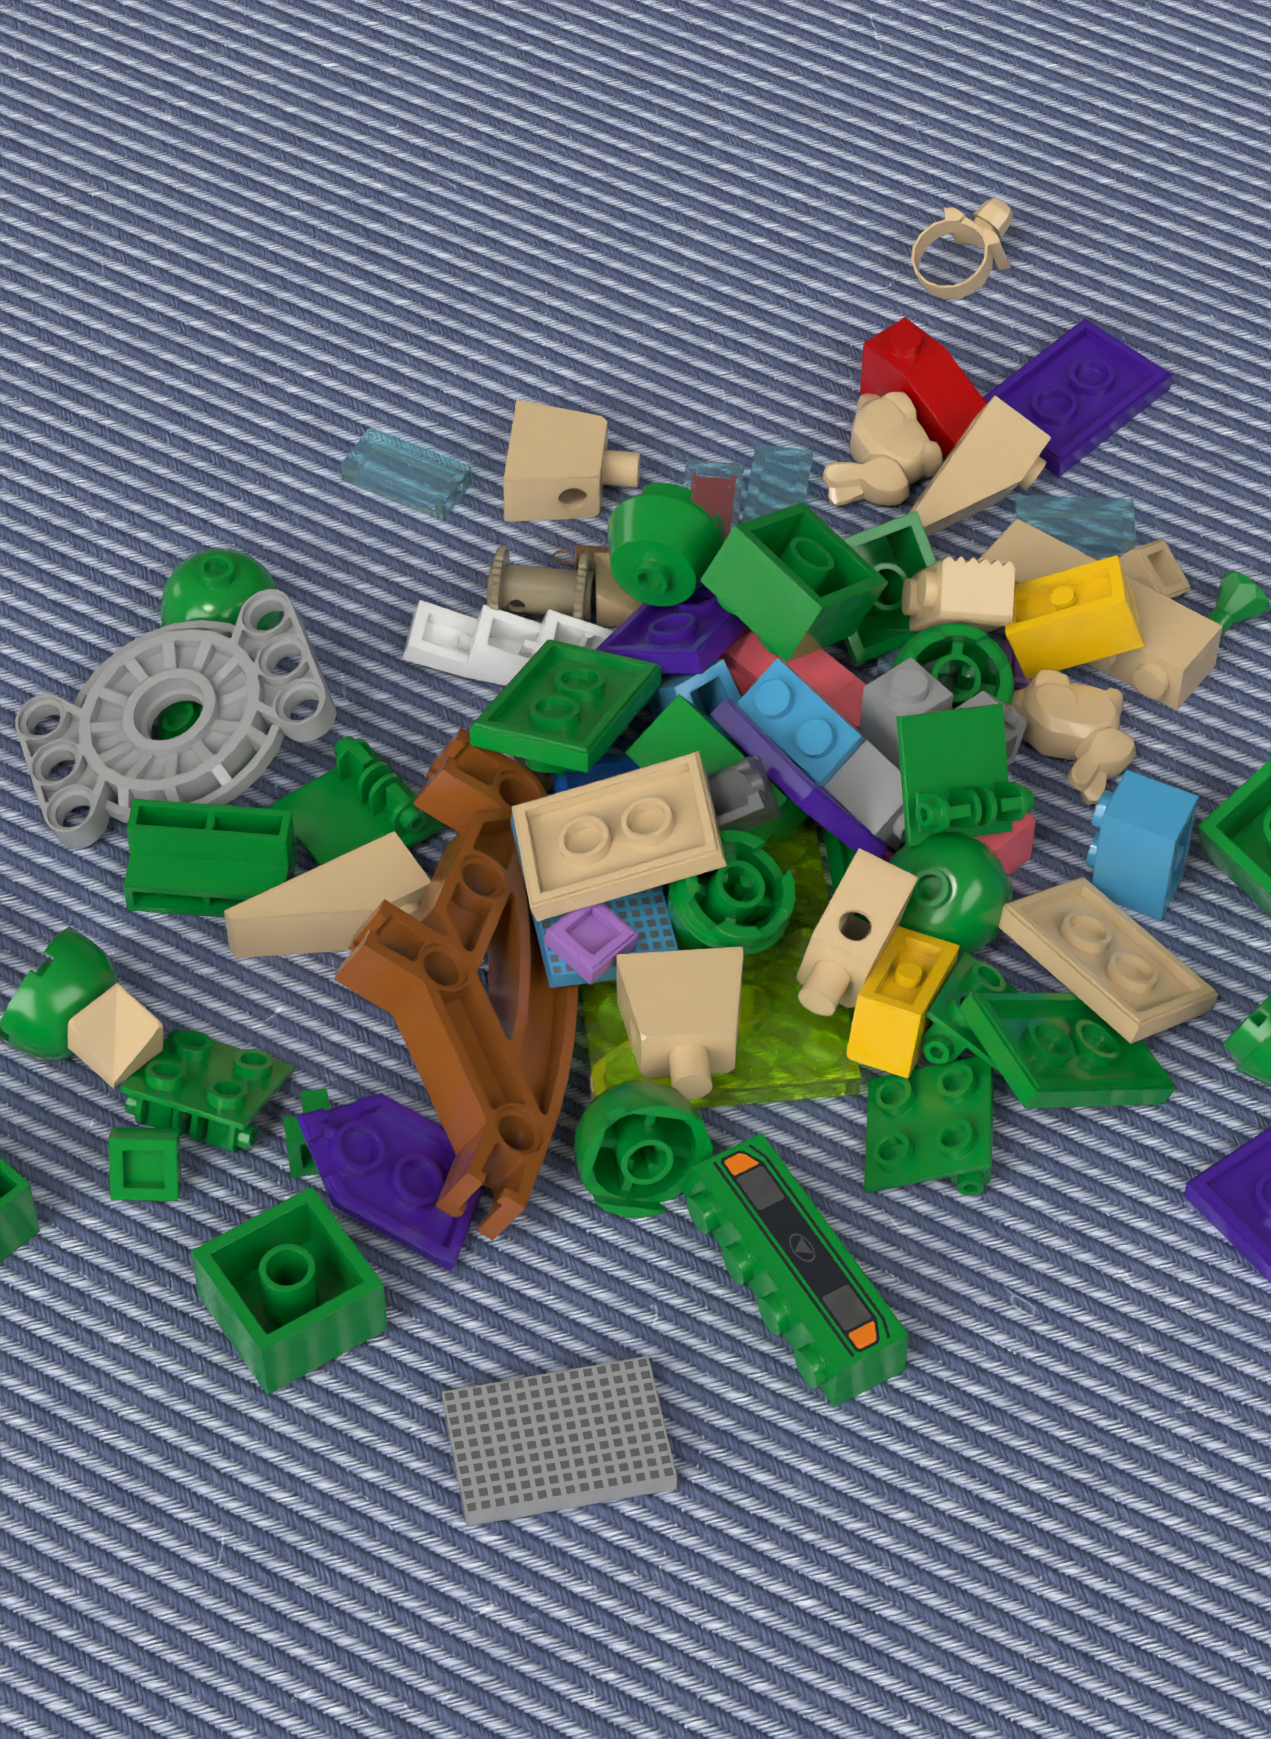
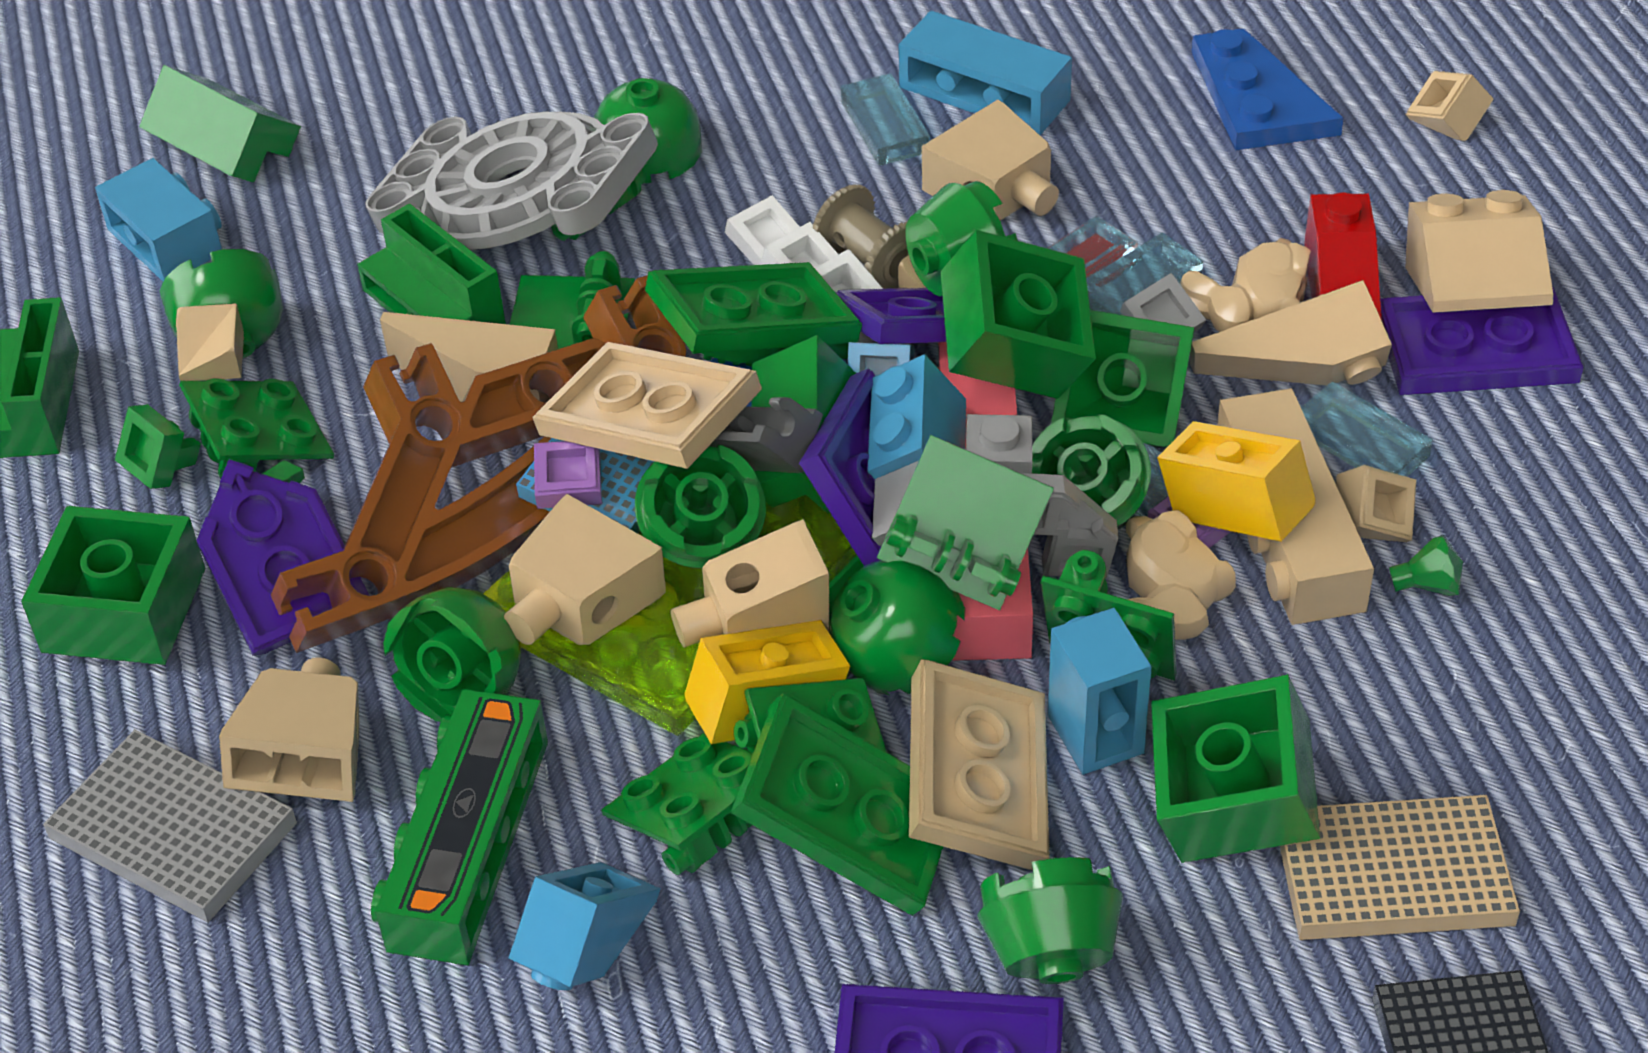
camera: 45 degrees right, 5 degrees down
(452, 379) = (978, 66): none -> dark azure brick
(596, 1292) = (295, 734): none -> tan torso
(683, 273) = (1258, 94): none -> blue wing
(841, 507) = (1165, 303): none -> light grey plate
(848, 198) = (1450, 104): none -> tan slope
(960, 593) = (1149, 401): tan brick -> none
(972, 1274) = (579, 923): none -> dark azure slope
(989, 225) = (1542, 172): tan piece -> none
(1021, 323) = (1478, 252): none -> tan slope
(1072, 787) = (1085, 592): none -> green hinge

